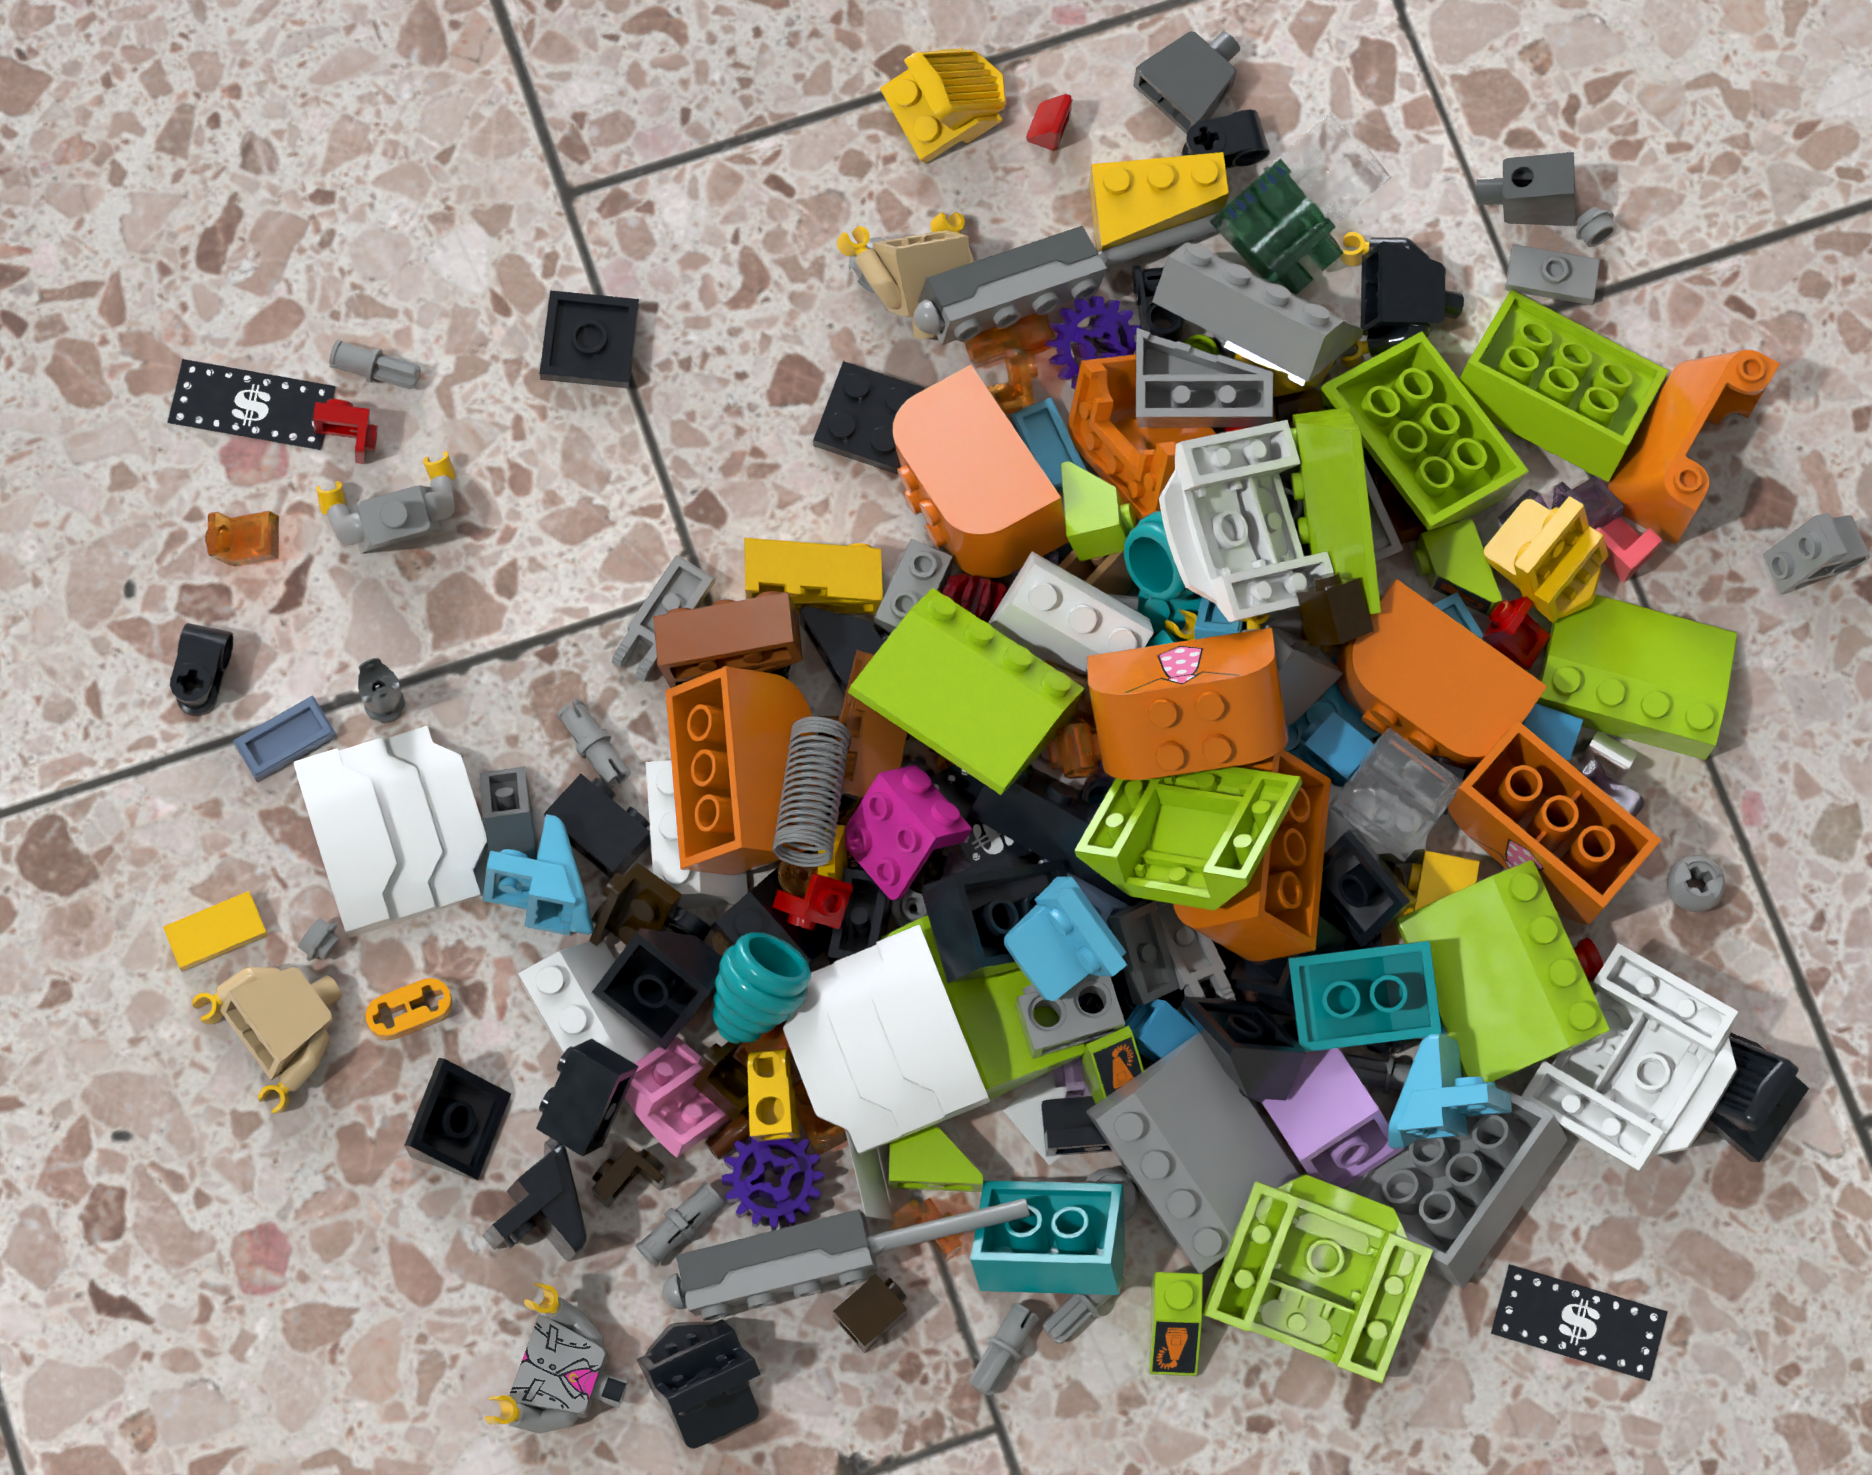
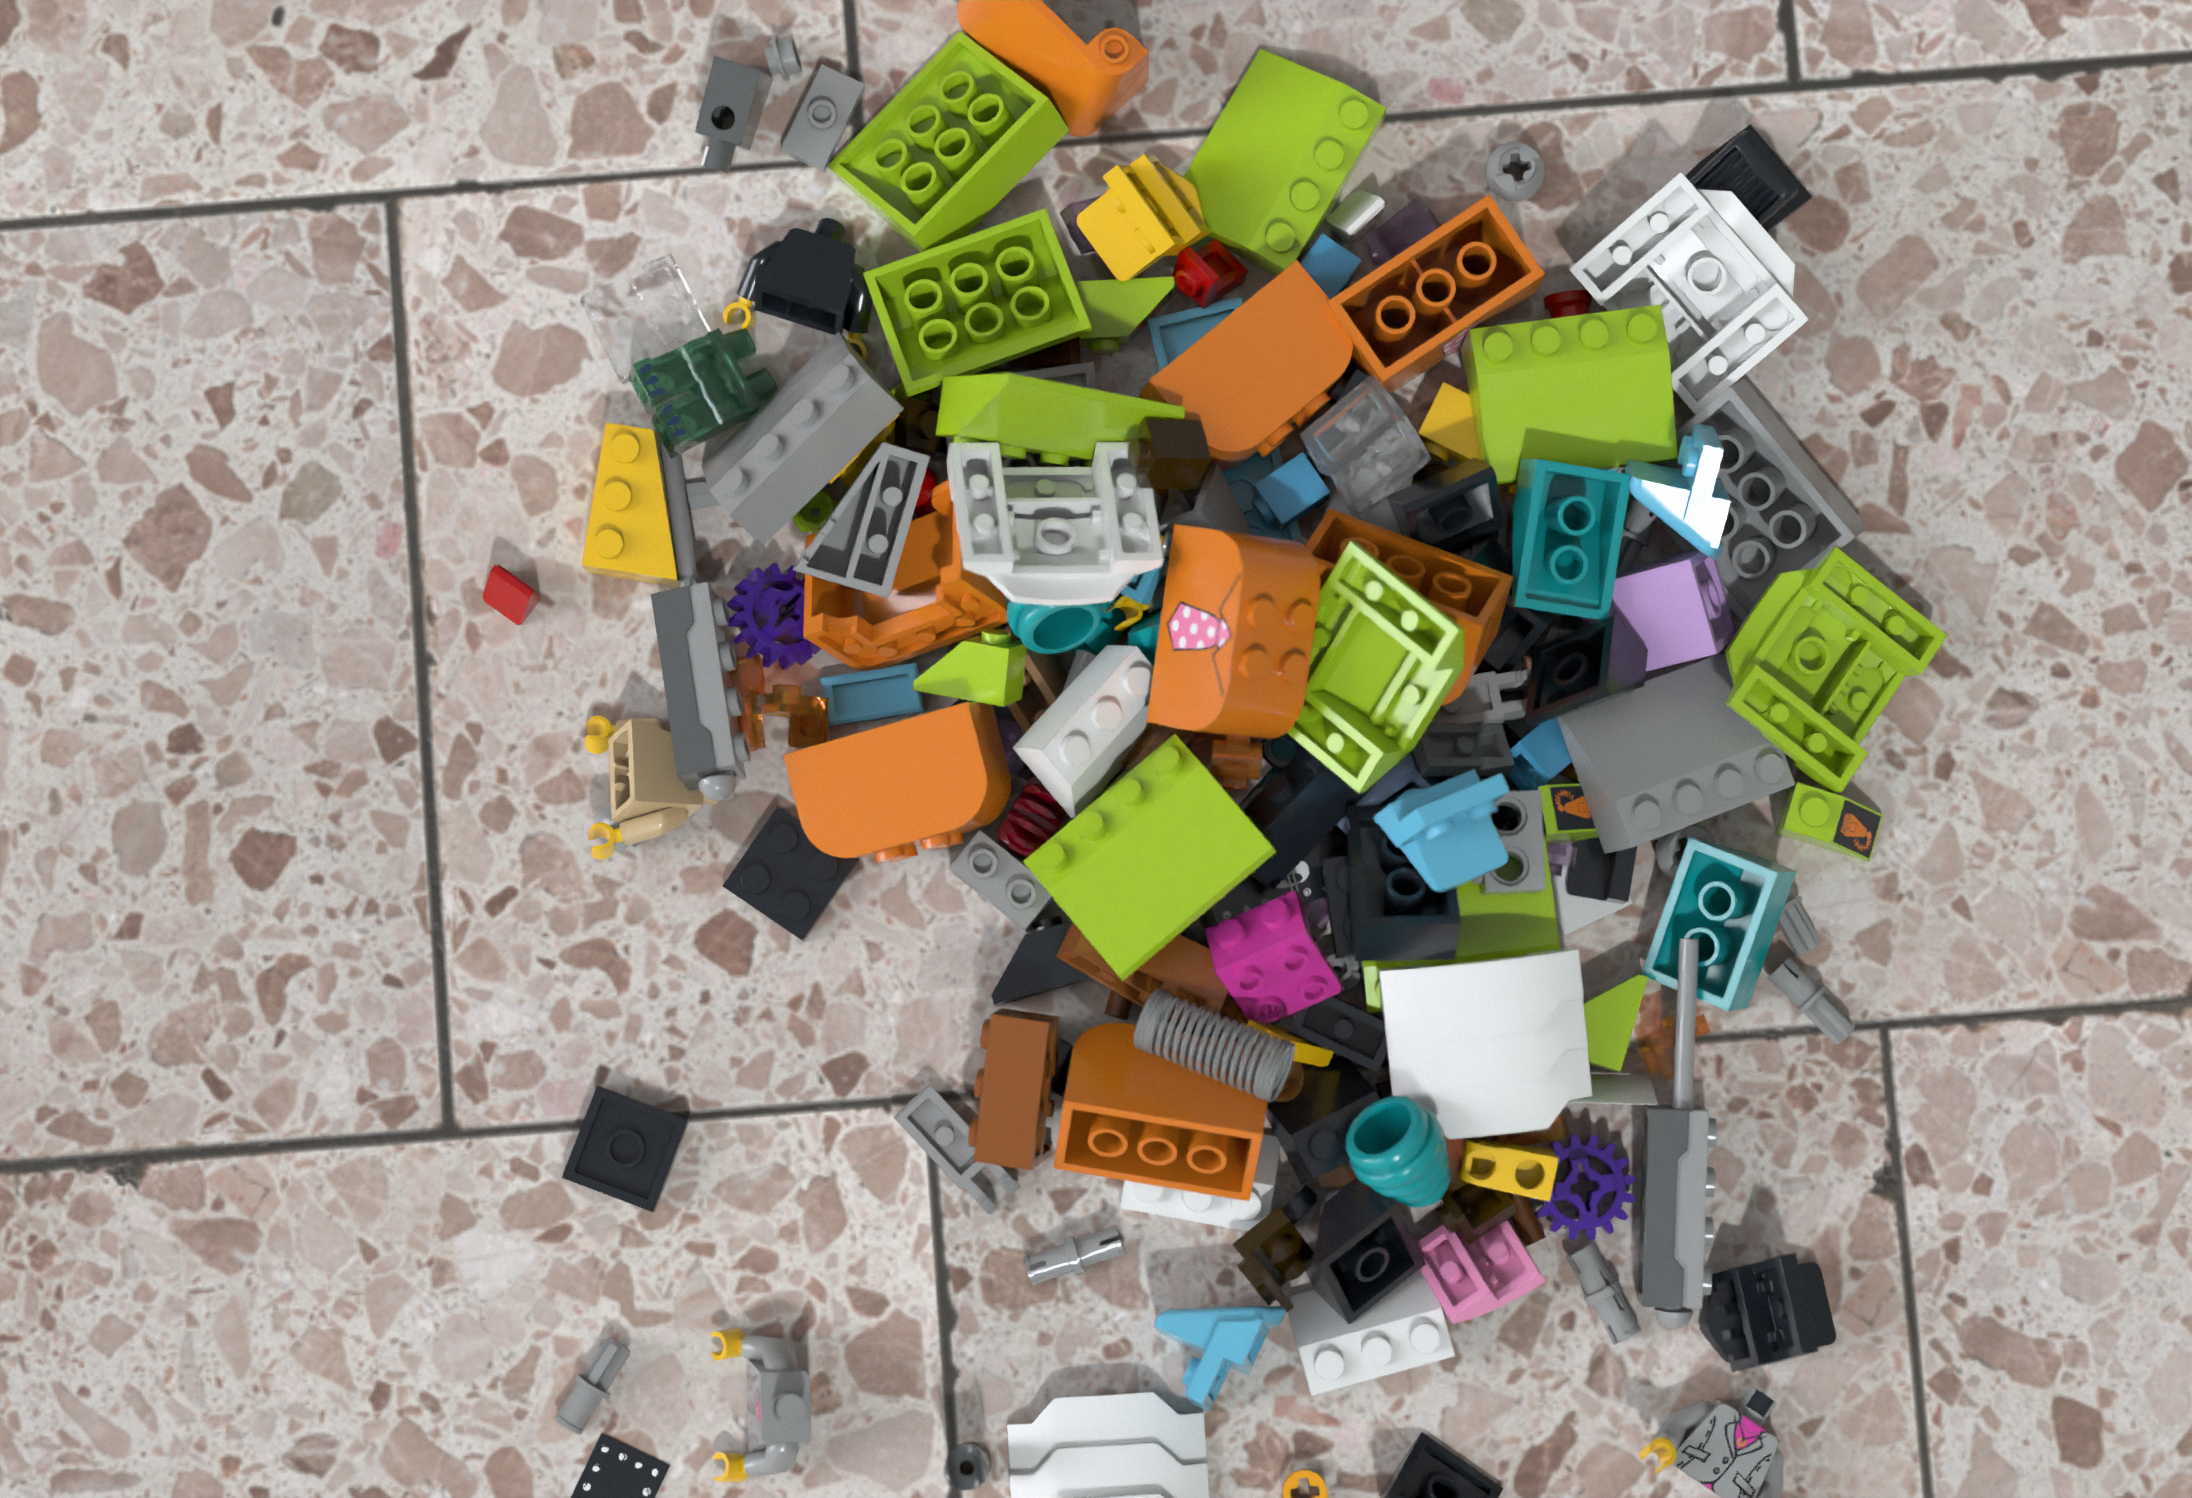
camera: 65 degrees left, 10 degrees up
(342, 419) = (646, 1435): red bracket -> none
(508, 811) = (1130, 1364): dark grey slope -> none
(547, 1200) = (1548, 1427): black piece -> none
(586, 1096) = (1466, 1359): black brick -> none
(600, 827) = (1166, 1272): black brick -> none
(616, 1175) = (1539, 1347): dark brown bracket -> none
(816, 574) = (958, 980): yellow wedge -> none
(823, 903) = (1326, 1071): red bracket -> none
(871, 1311) = (1743, 1122): dark brown brick -> none
(945, 99) = (456, 697): yellow piece -> none
(1144, 288) = (731, 542): black piece -> none
(1189, 77) = (503, 432): dark grey torso -> none
(1236, 135) = (585, 408): black piece -> none
(1579, 1322) = (1922, 422): black sticker -> none
(1599, 502) = (1087, 158): bracket -> none
(1627, 548) = (1140, 133): coral panel -> none

